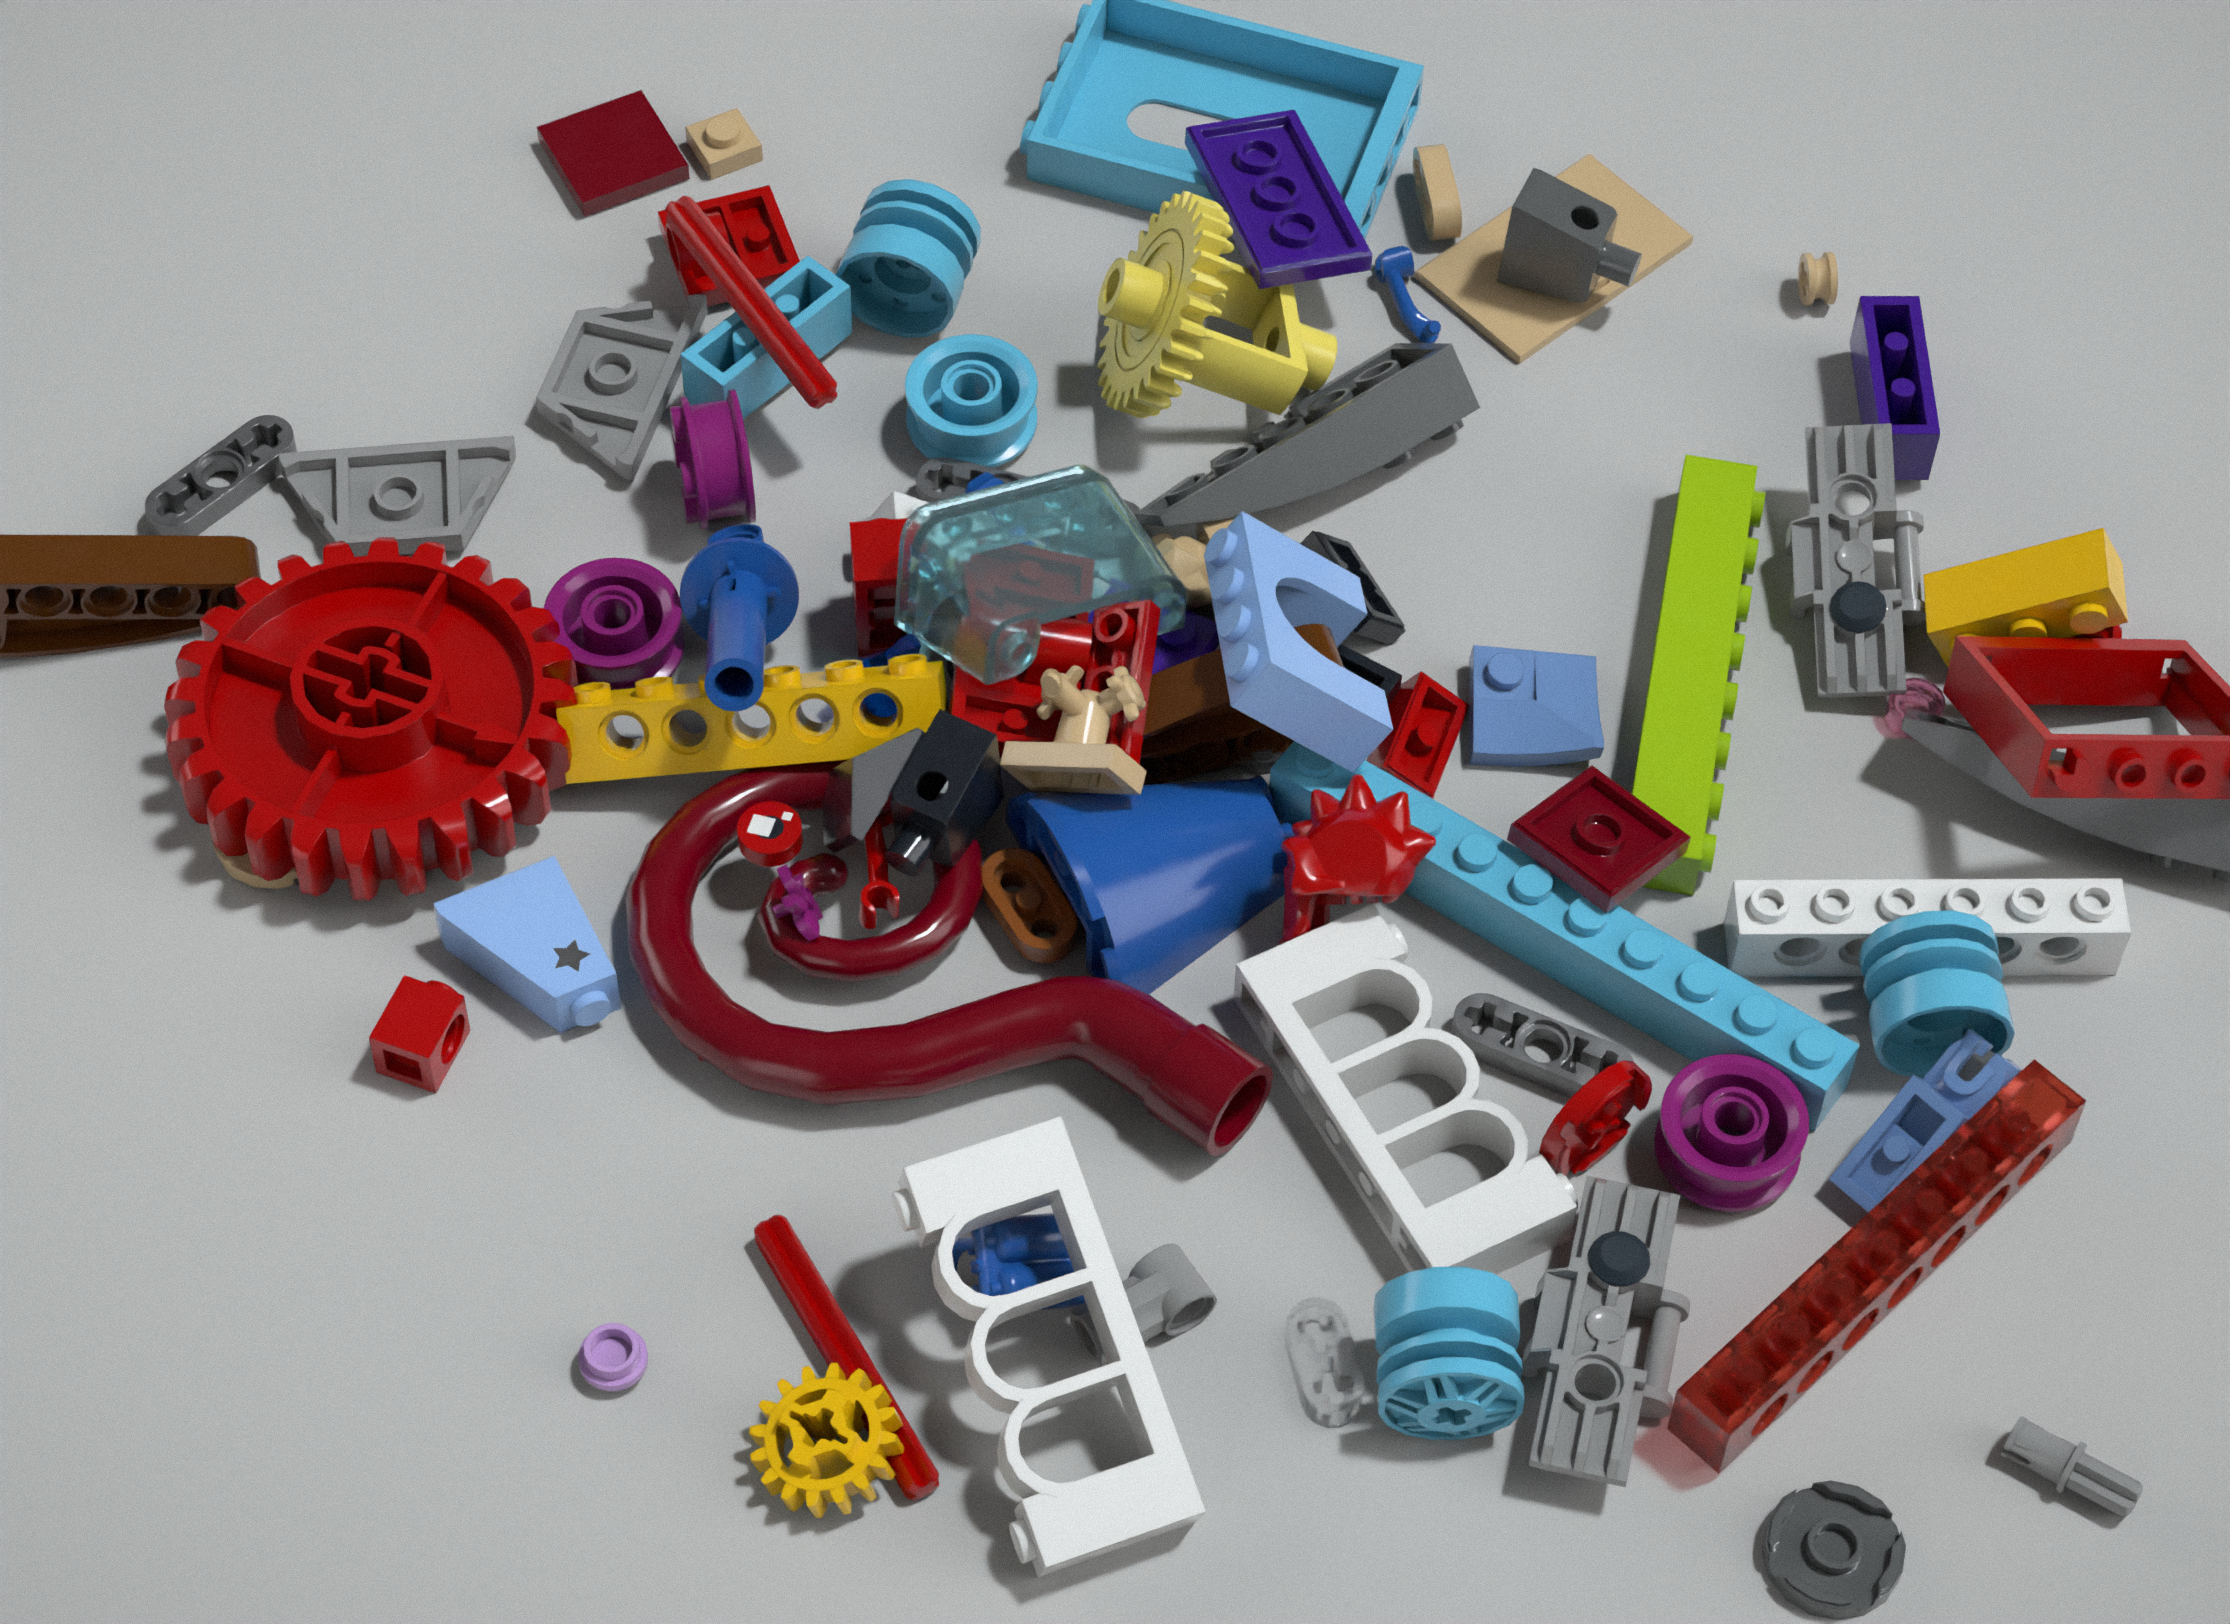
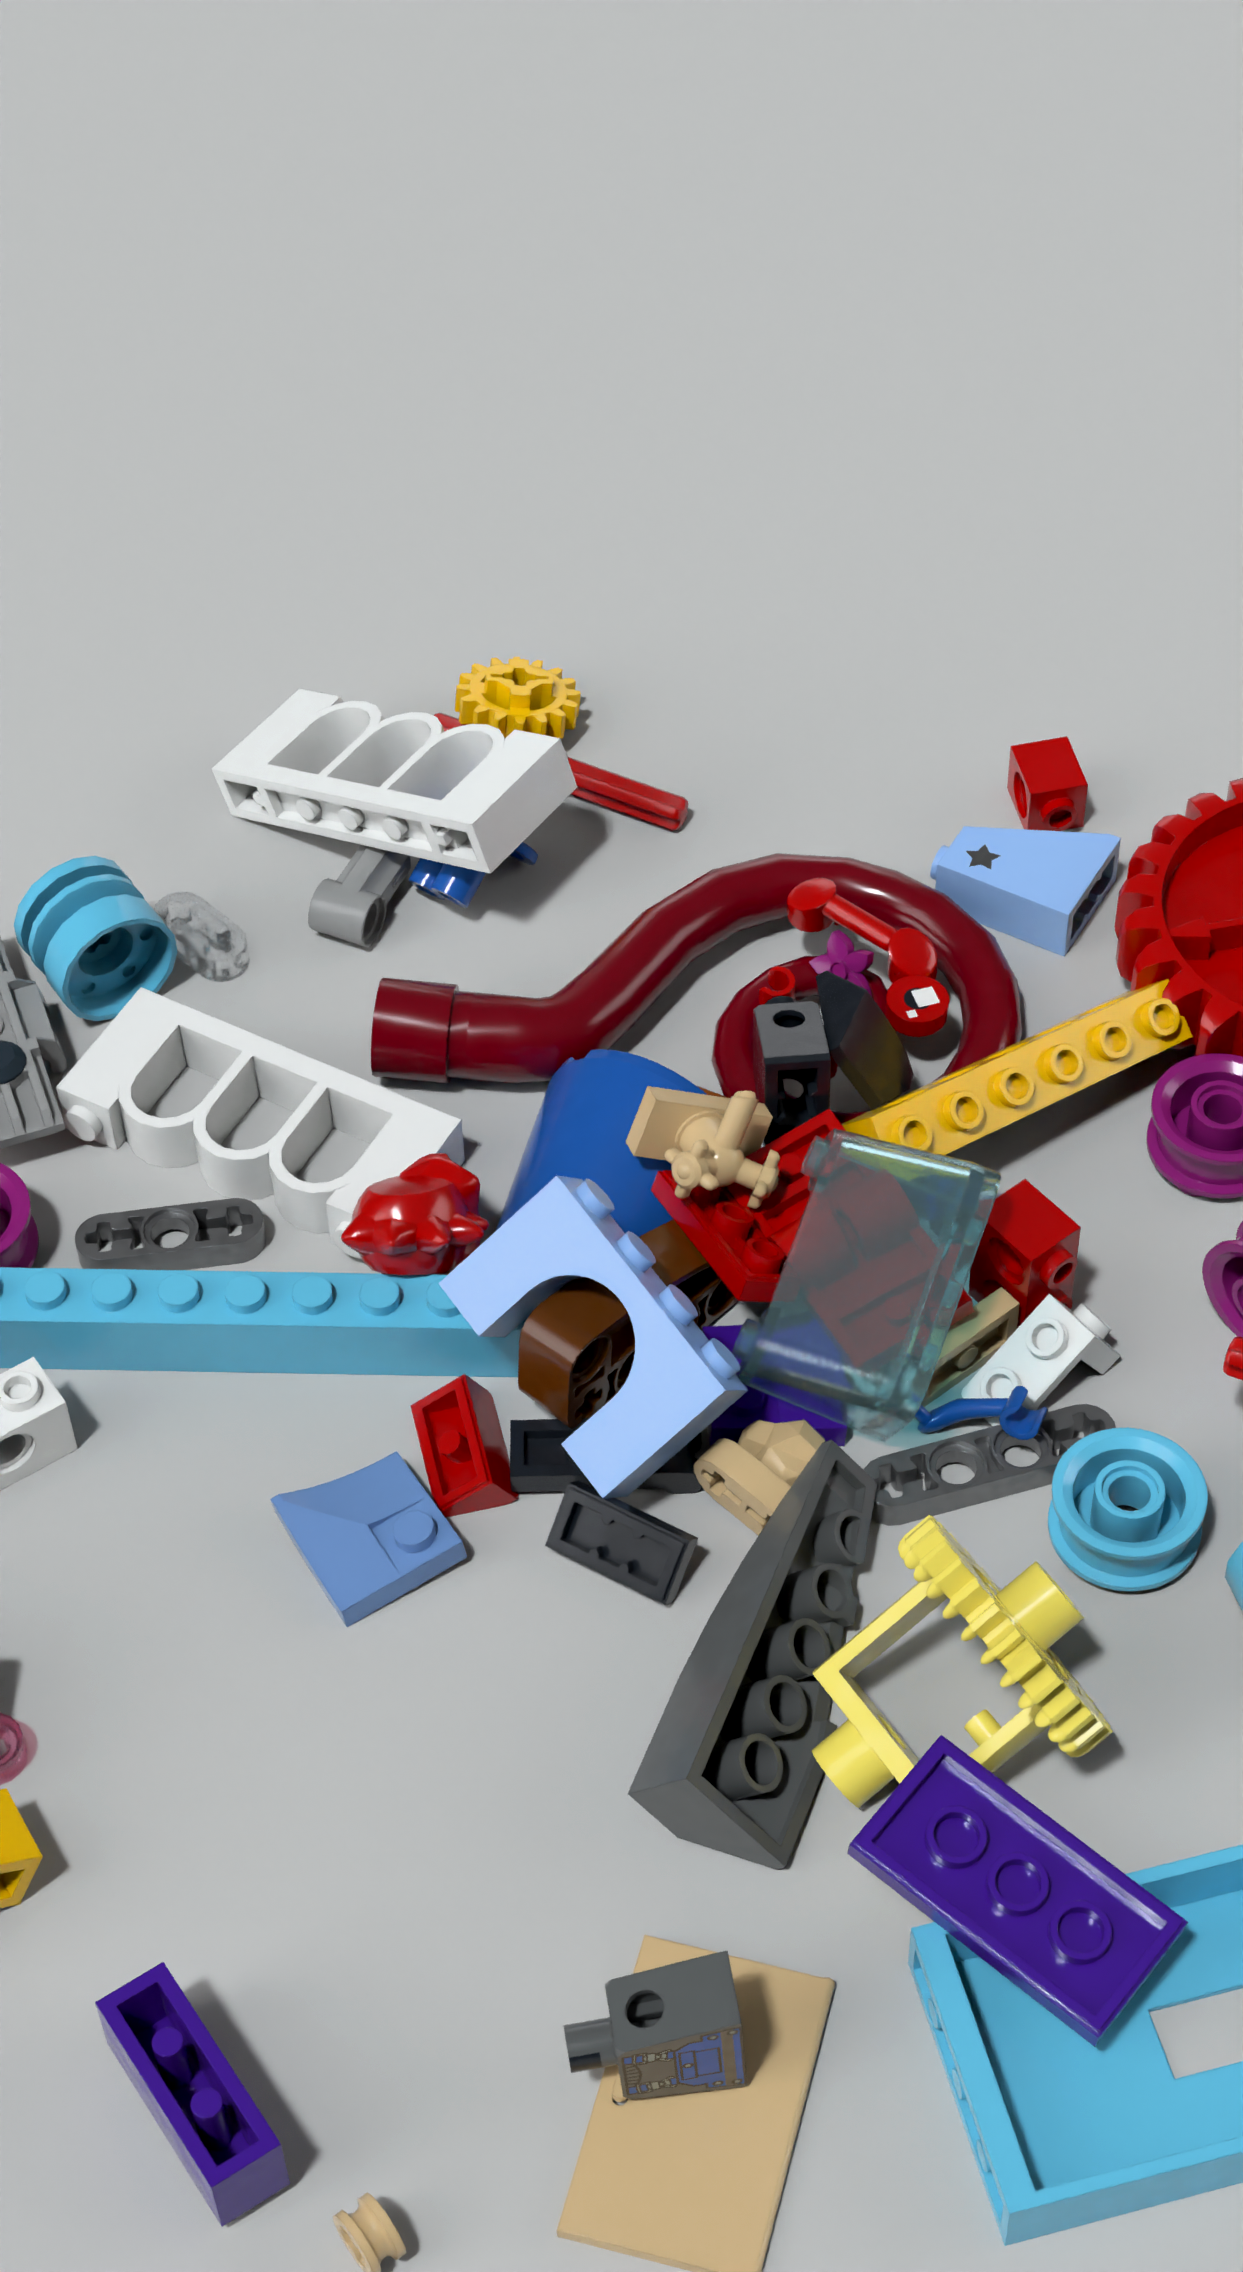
camera: 150 degrees right, 5 degrees down
(613, 1357) = (713, 689): lavender plate -> none
(738, 600) = (1136, 1177): blue piece -> none
(773, 959) = (816, 906): none -> red bar
(1391, 268) = (852, 1969): blue piece -> none
(1437, 192) = (878, 2081): tan beam -> none
(1595, 1118) = (83, 1158): red tile -> none
(1598, 838) = (208, 1359): dark red tile -> none
(1693, 655) = (242, 1656): lime brick -> none
(1833, 563) = (161, 1841): light grey piece -> none

